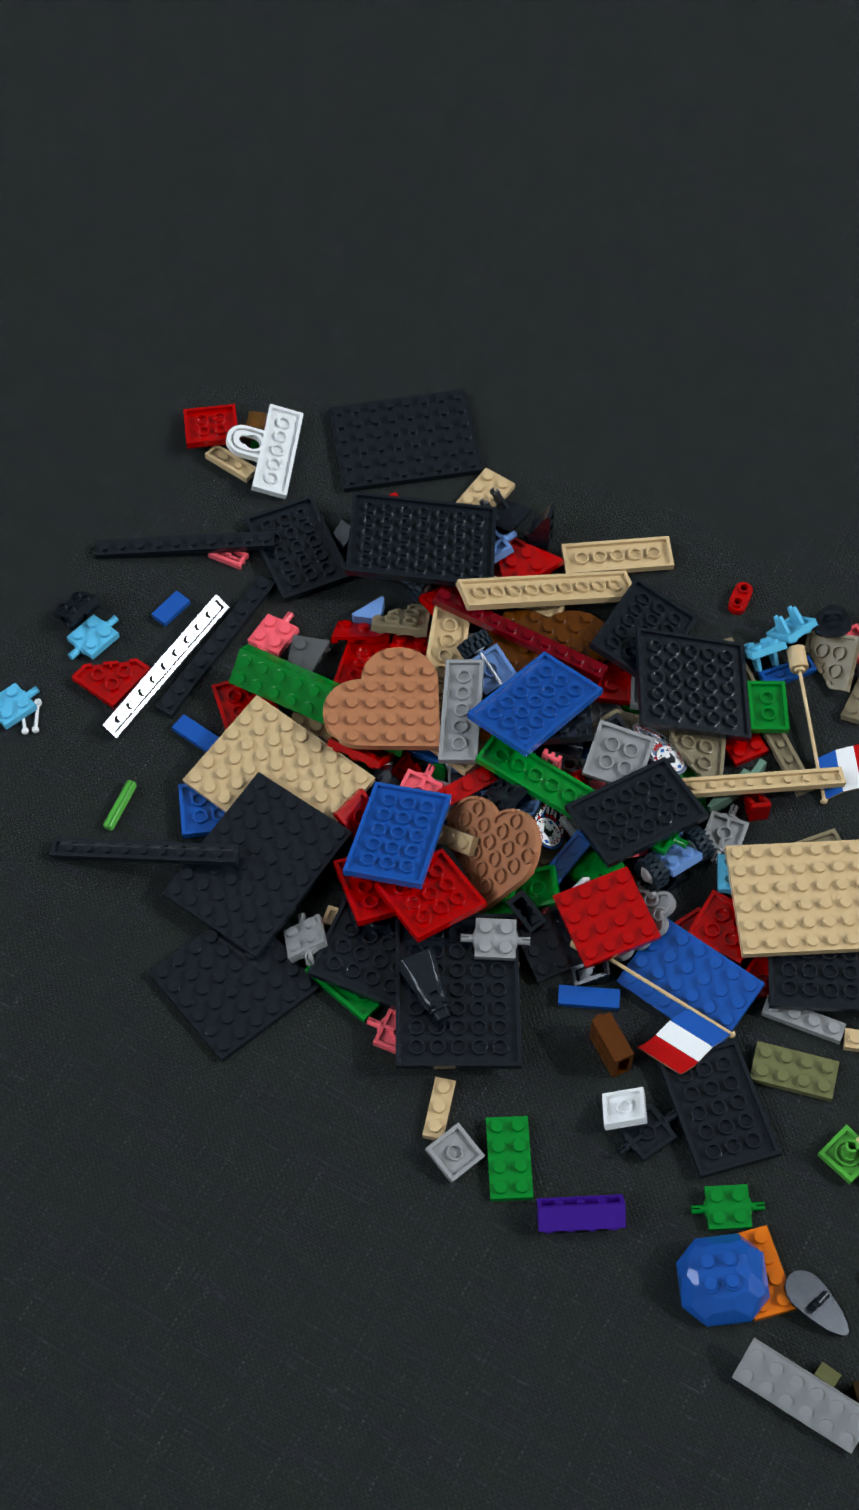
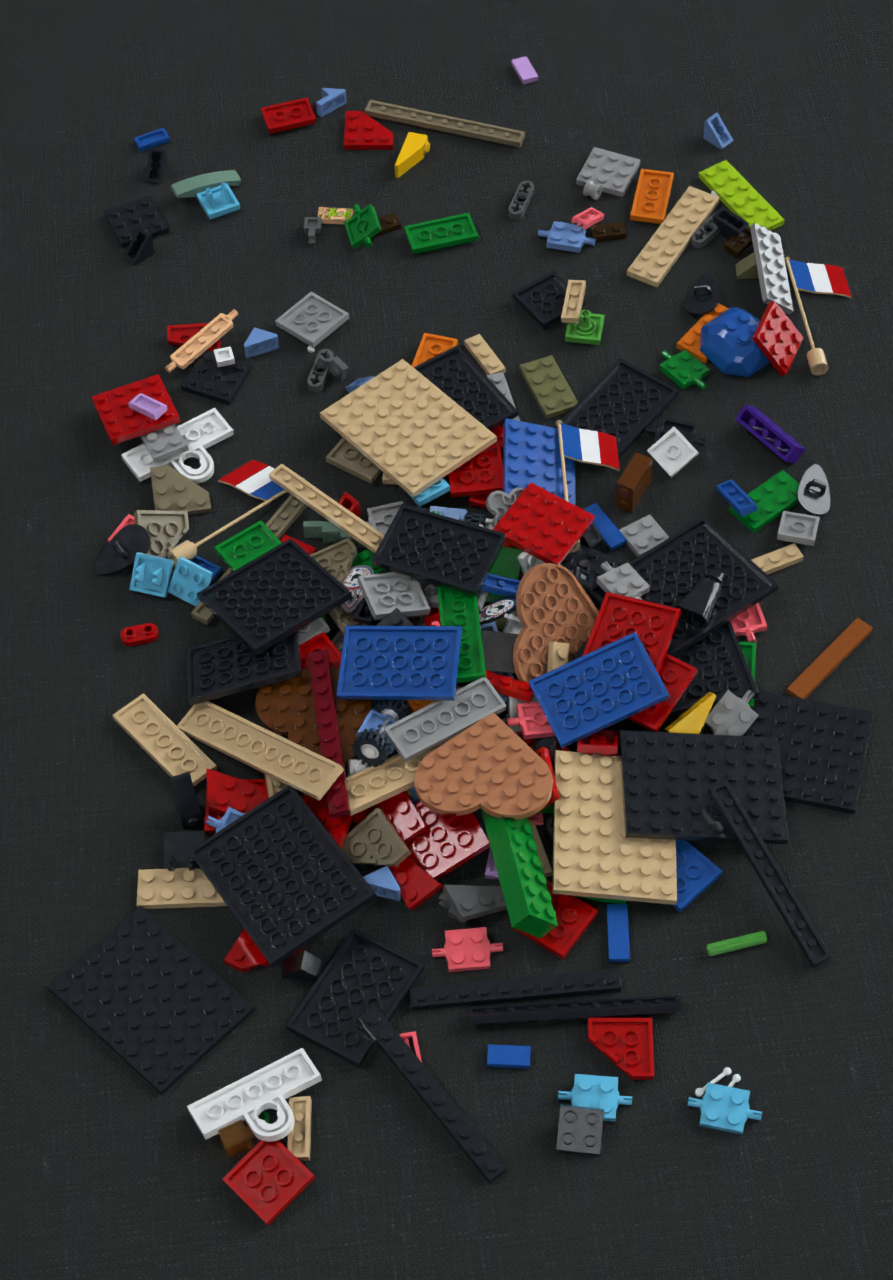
camera: 125 degrees left, 5 degrees down
(301, 1072) = (829, 659): none -> dark orange tile
(325, 899) = (694, 717): none -> yellow slope
(486, 1204) = (814, 491): none -> shield
(528, 1123) = (736, 498): none -> blue tile
(552, 1023) = (643, 535): none -> light grey plate
(692, 1310) = (777, 338): none -> red plate
(760, 1442) = (817, 280): none -> flag

